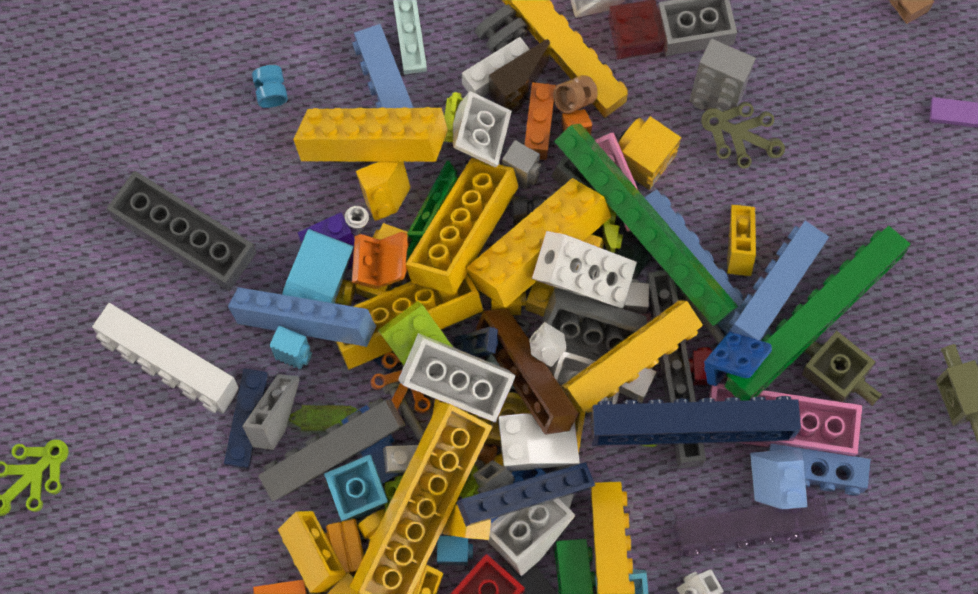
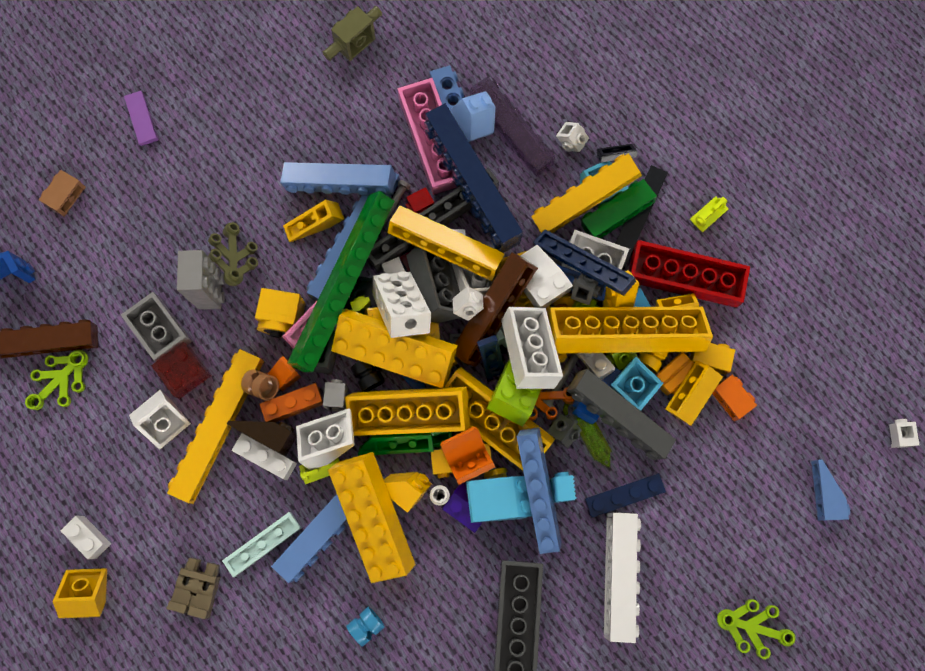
camera: 120 degrees left, 5 degrees up
(271, 414) = (612, 477): light grey slope -> none
(351, 386) = (564, 430): none -> dark grey brick
(512, 31) = (224, 460): dark grey brick -> none
(736, 356) = (410, 173): blue bracket -> none
(822, 310) = (347, 143): green brick -> none
(840, 383) = (376, 117): olive brick -> none

